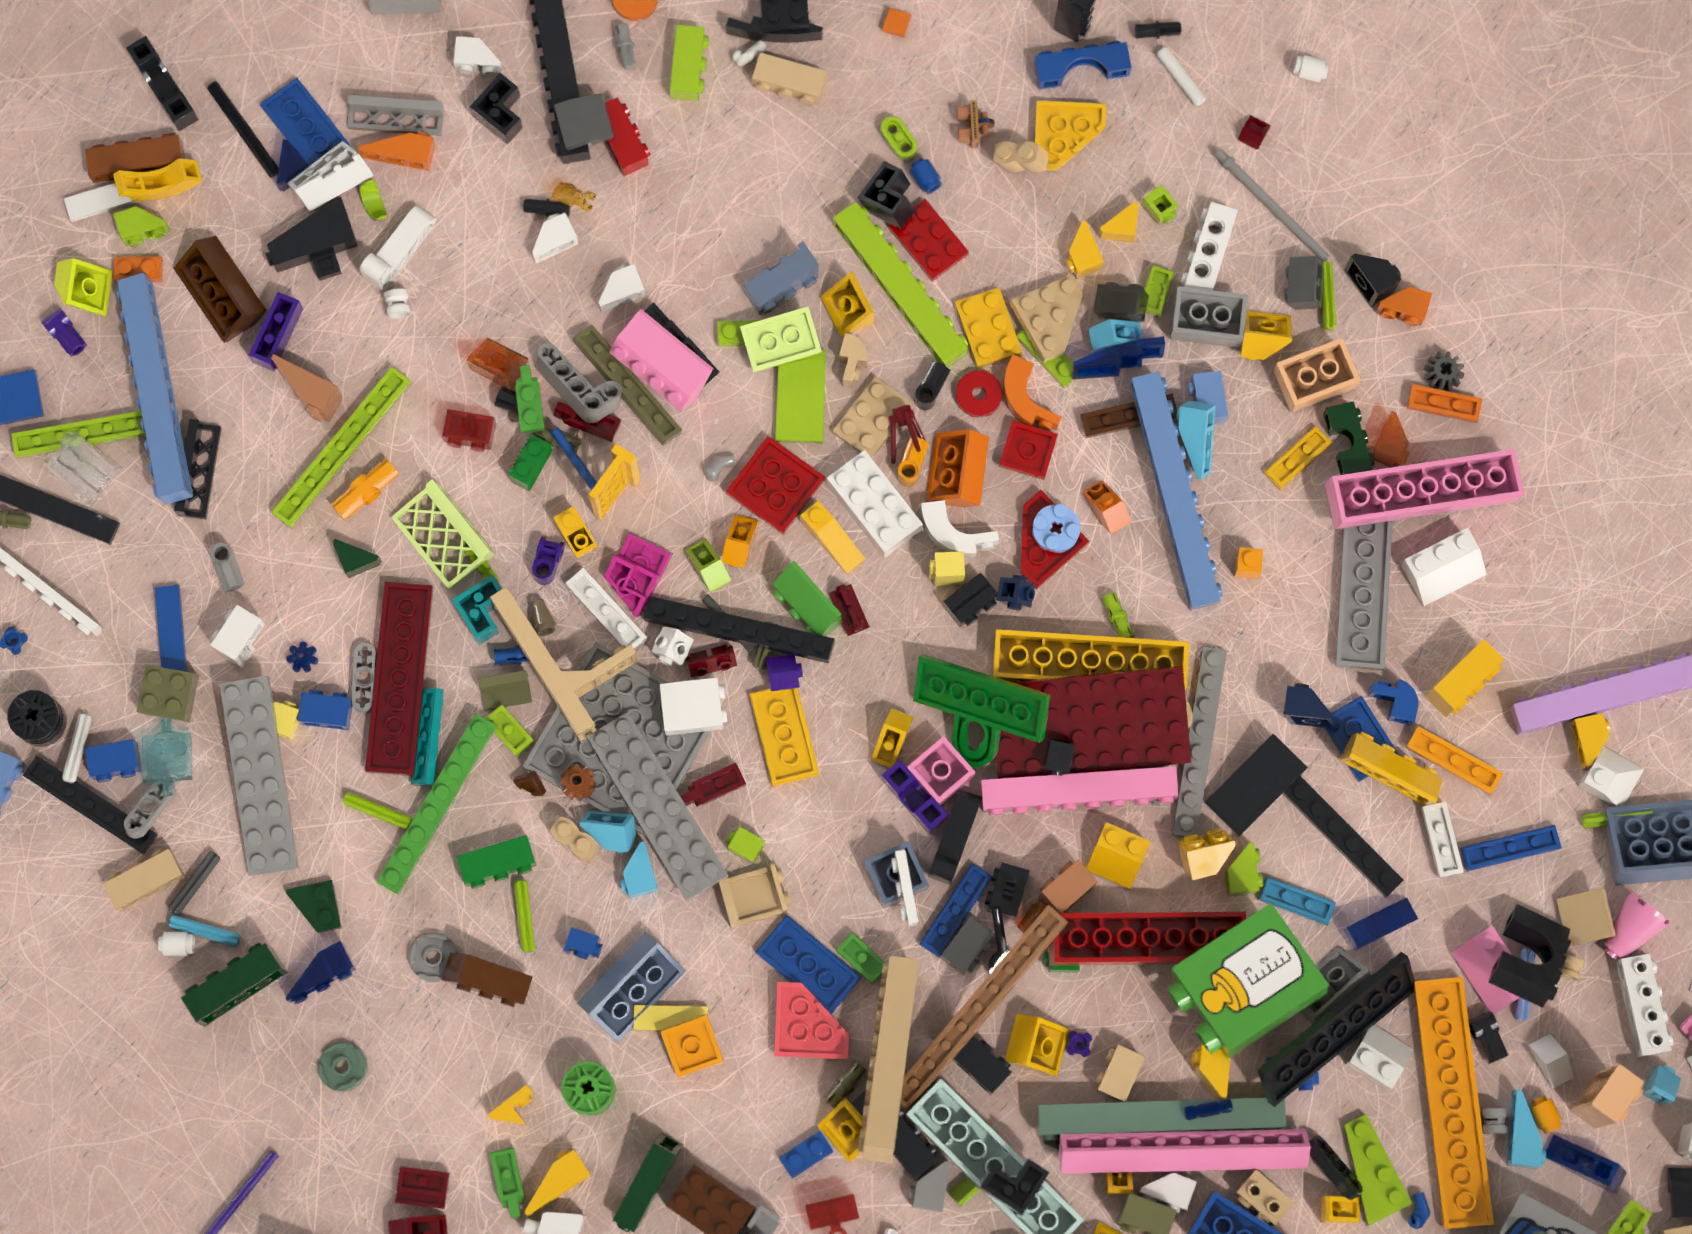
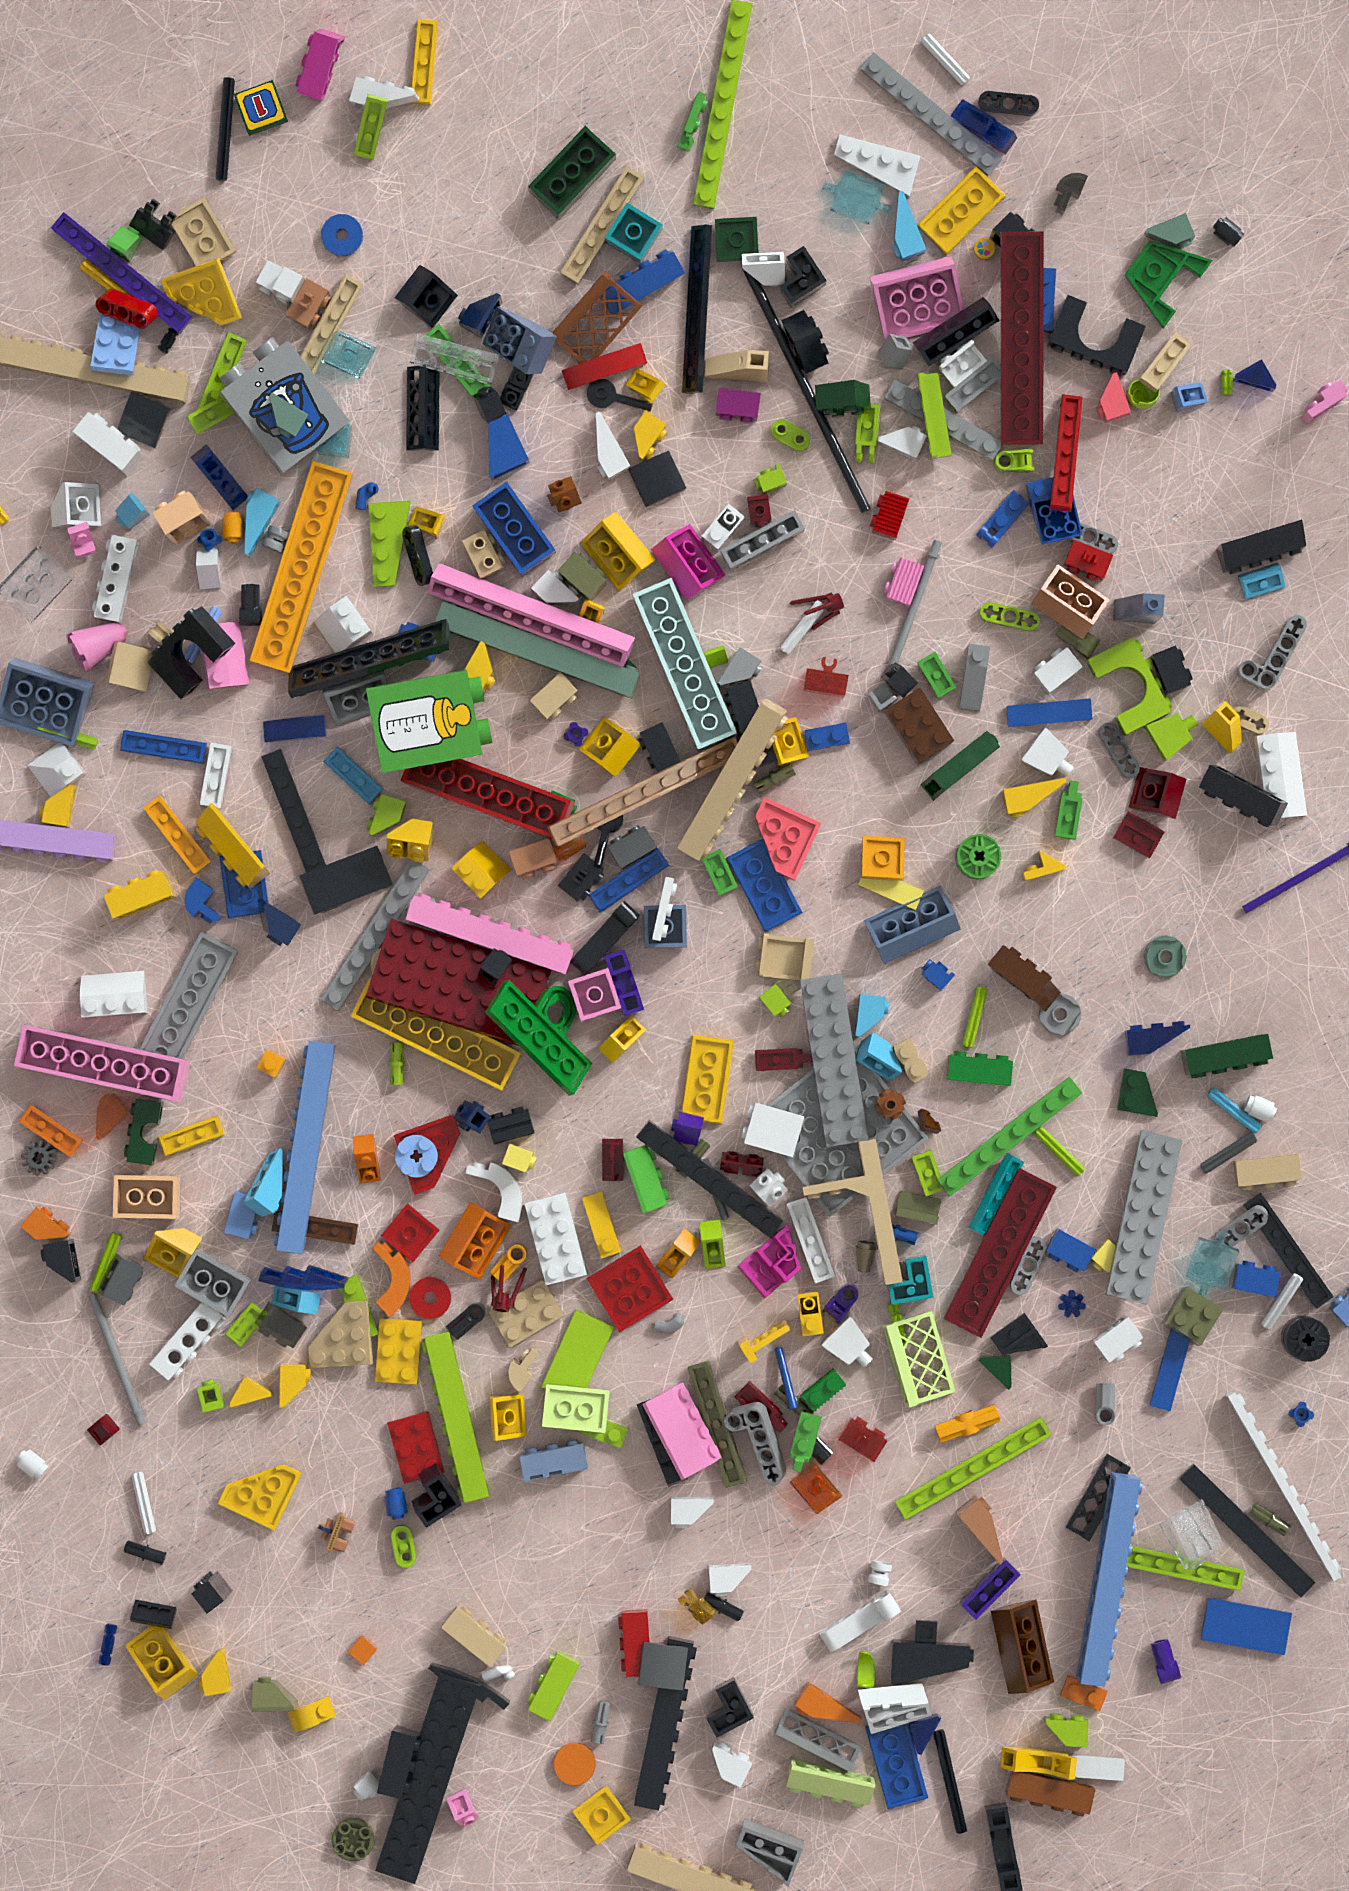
camera: 150 degrees left, 10 degrees up
(83, 285) = (1135, 1695): neon yellow slope -> none
(346, 599) = (1018, 1337): none -> black wing
(366, 79) = (830, 1782): none -> yellowish green slope
(523, 520) = (848, 1343): none -> white torso
(1016, 1192) = (677, 635): black brick -> none
(1021, 157) = (310, 1485): tan brick -> none
(1110, 59) = (196, 1541): blue arch -> none
(1208, 1109) = (498, 638): clear blue axle -> none
(1570, 1093) = (205, 537): none -> blue plate

